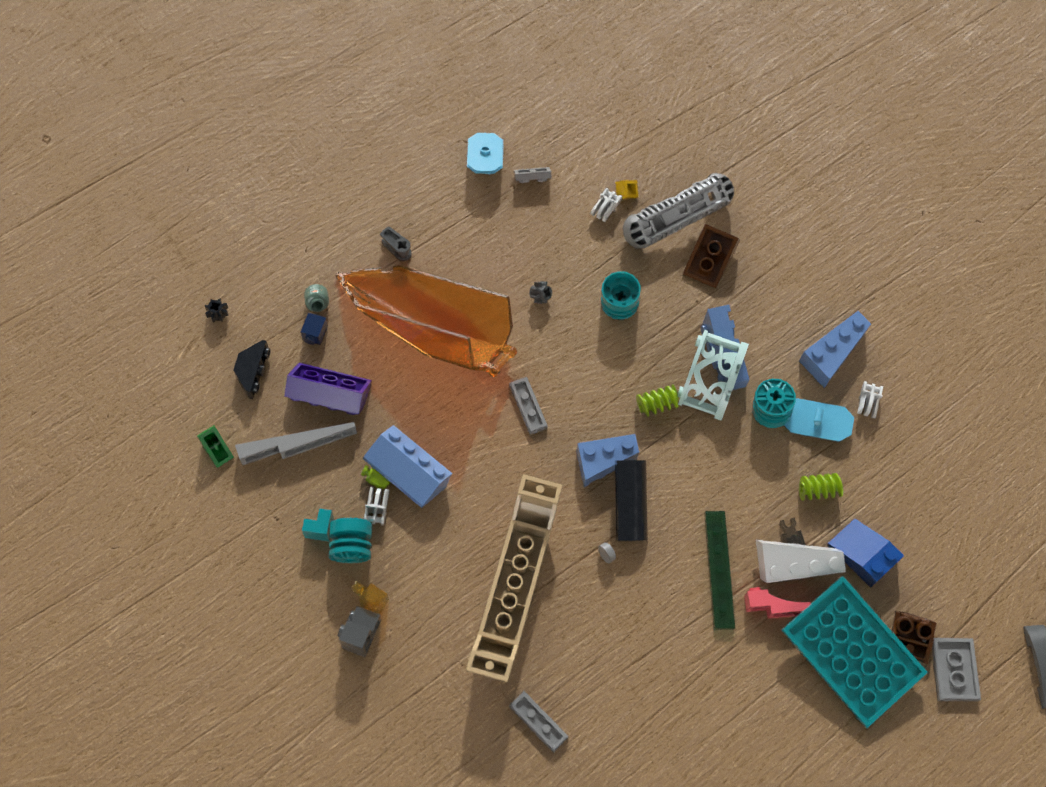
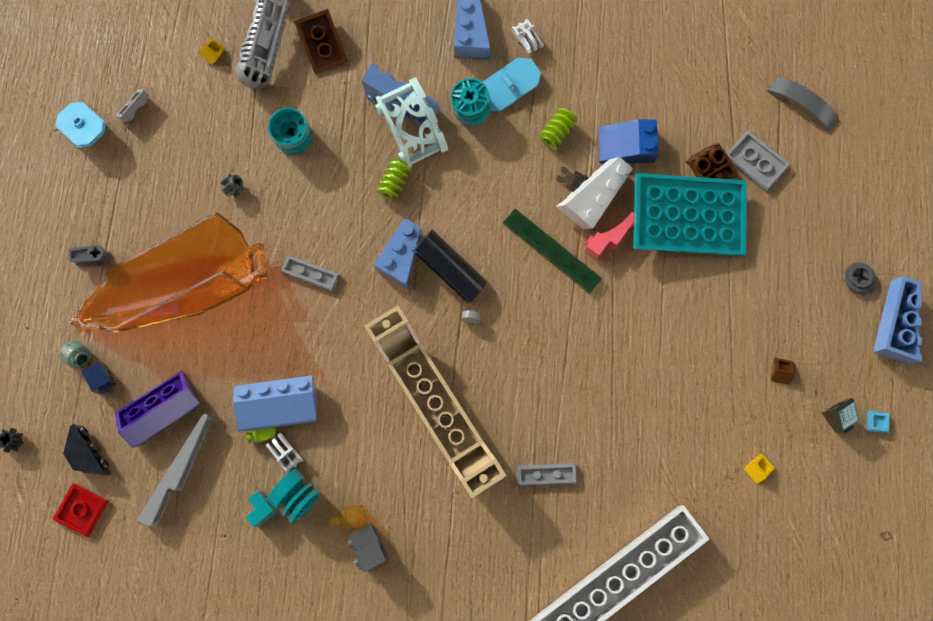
camera: 40 degrees left, 10 degrees up
(208, 402) = (80, 509): none -> red tile
(215, 446) = (122, 536): green slope -> none
(606, 204) = (209, 73): white arm -> none

